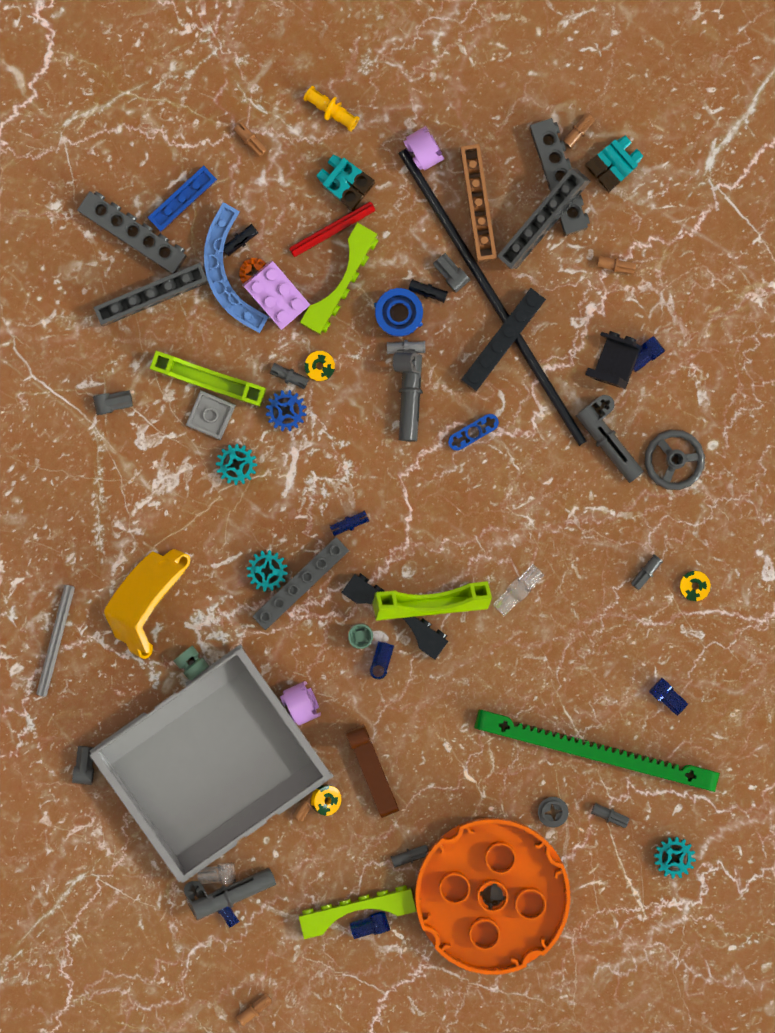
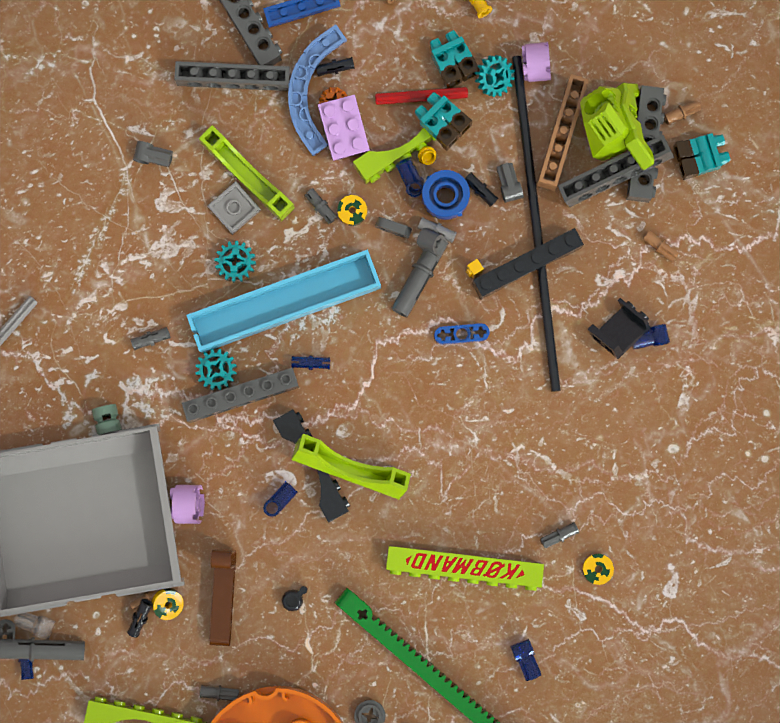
camera: 25 degrees right, 5 degrees down
(140, 595) = (91, 334): yellow panel -> none
(194, 570) = (150, 338): none -> dark grey pin
(291, 402) = (296, 239): blue gear -> none
(299, 480) = (284, 301): none -> medium azure piece
(307, 834) = (135, 627): none -> black pin
(358, 246) = (443, 120): none -> hips
(359, 310) = (410, 175): none -> clear blue piece
(360, 636) = (271, 468): sand green wheel -> none
(364, 282) = (427, 155): none -> yellow plate
(365, 364) = (393, 227): none -> dark grey beam
(391, 179) = (493, 76): none -> teal gear
(435, 742) = (293, 599): none -> black piece
(457, 368) = (474, 269): none -> yellow piece
(518, 590) = (435, 495): clear piece -> none
(520, 178) = (612, 124): none -> lime helmet
(575, 640) = (465, 567): none -> lime brick
(606, 437) = (580, 396): dark grey piece -> none
(659, 440) = (638, 440): dark grey piece -> none

